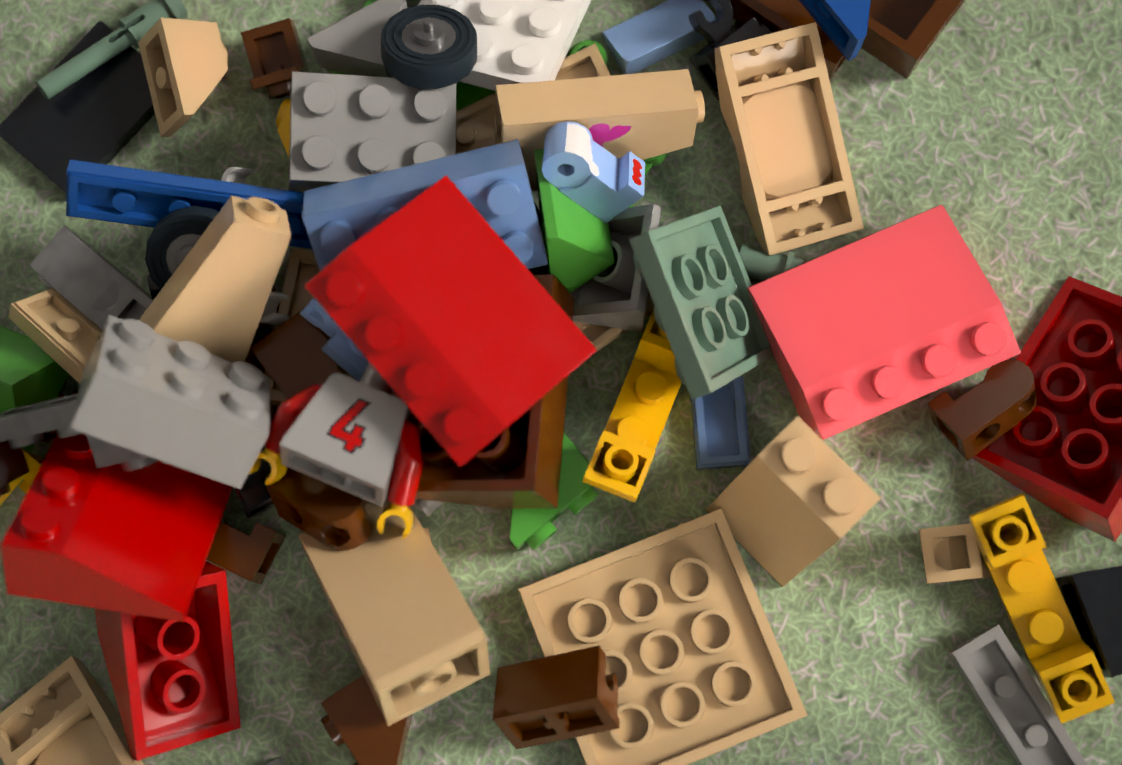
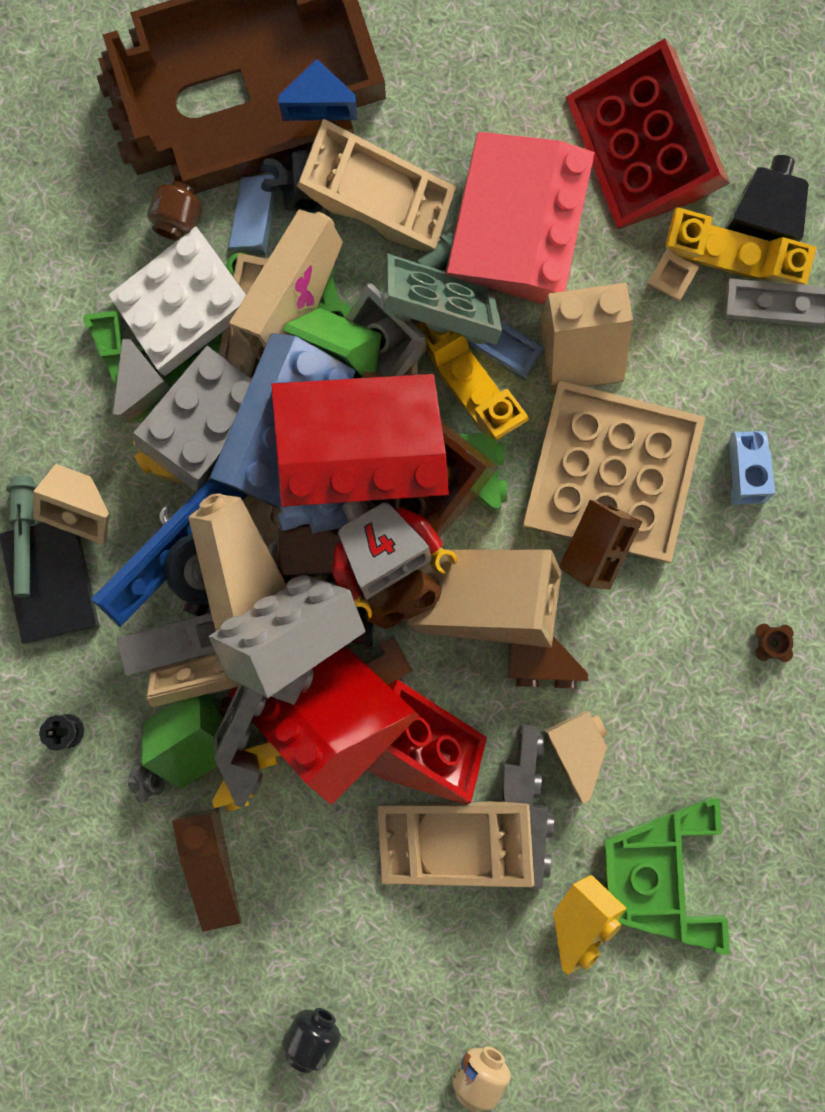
camera: 55 degrees left, 5 degrees up
(273, 55) = (103, 445): reddish brown bracket -> none
(429, 46) = (175, 344): black wheel -> none
(590, 172) = (322, 307): light blue leg -> none
(986, 409) = (610, 196): reddish brown leg -> none

